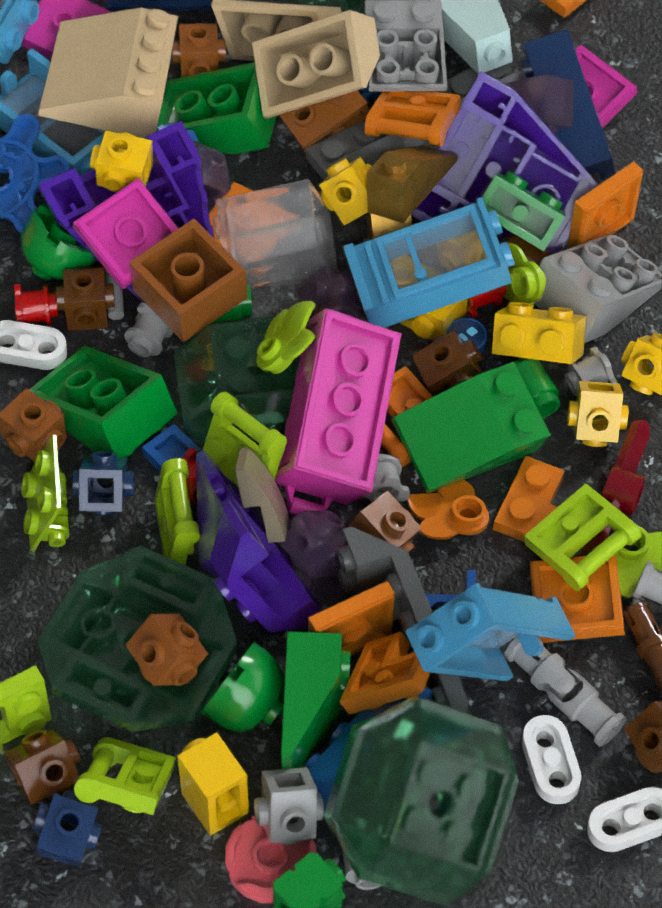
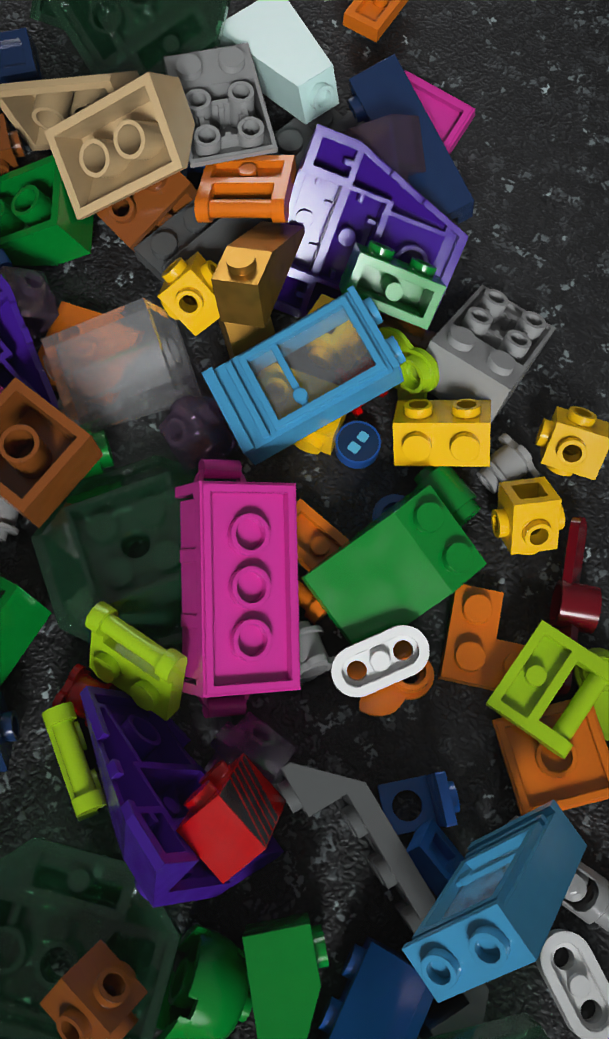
camera: 15 degrees left, 15 degrees up
(167, 445) = (53, 659): blue tile -> none
(260, 489) = (169, 727): dark tan slope -> none
(286, 338) = (157, 513): lime plate -> none
(298, 547) = (231, 816): none -> red brick
(358, 618) = (310, 875): orange plate -> none
(384, 675) = (363, 964): orange plate -> none
(388, 522) = (322, 725): dark orange brick -> none
(441, 485) = (379, 659): none -> white plate
(448, 362) = (350, 489): reddish brown brick -> none
(606, 206) = (479, 260): orange plate -> none

